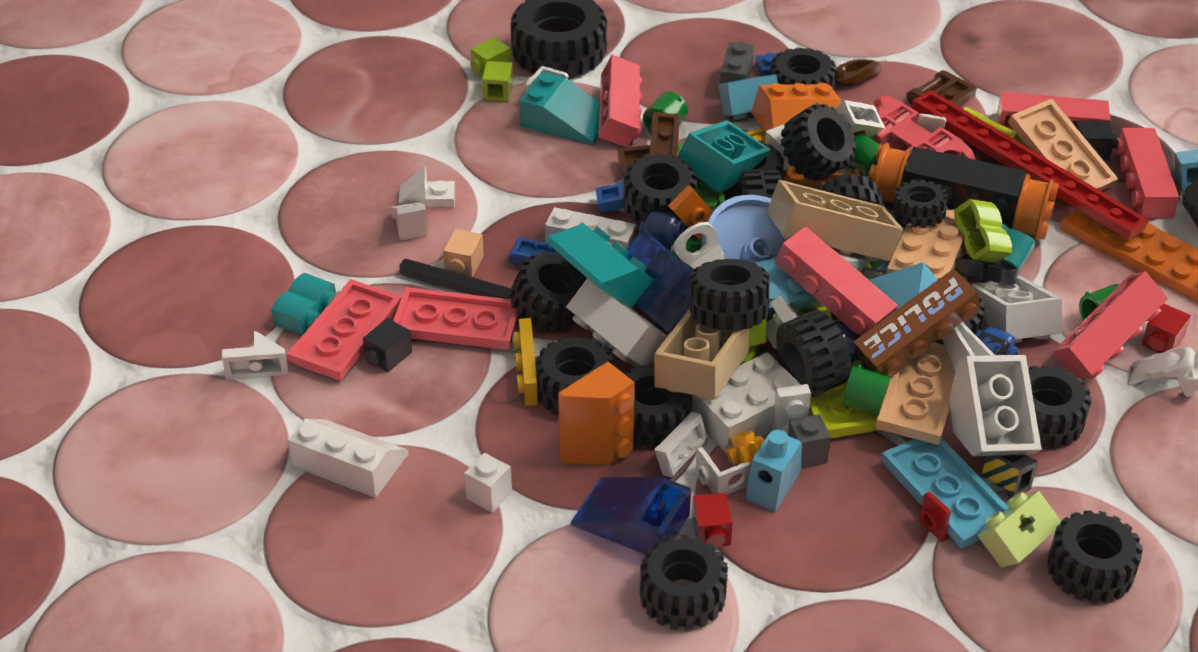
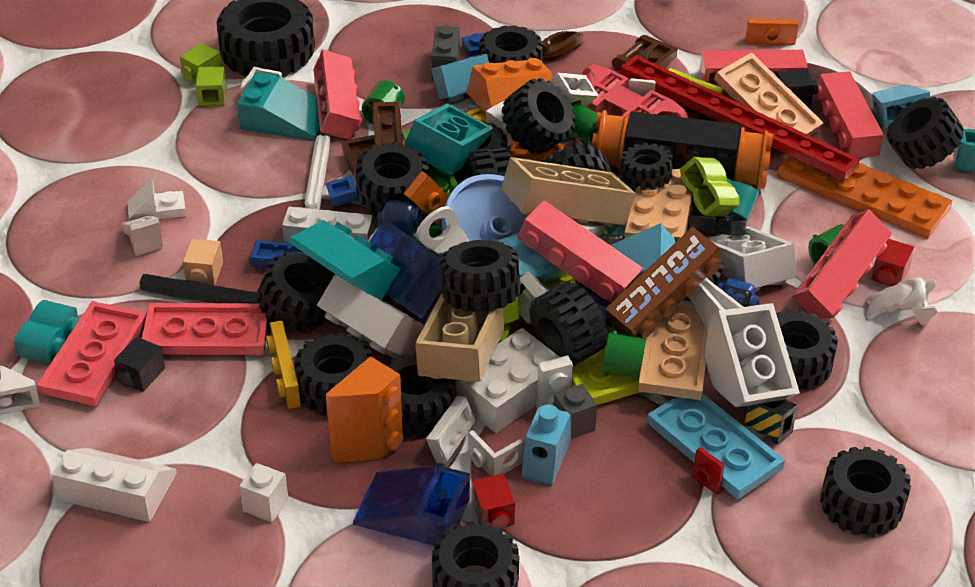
camera: 10 degrees left, 0 degrees up
(589, 177) = (317, 172): none -> white axle
(743, 447) = (513, 425): light orange gear -> none
(1019, 528) = (790, 473): yellowish green brick -> none
(1079, 79) = (771, 31): none -> orange plate

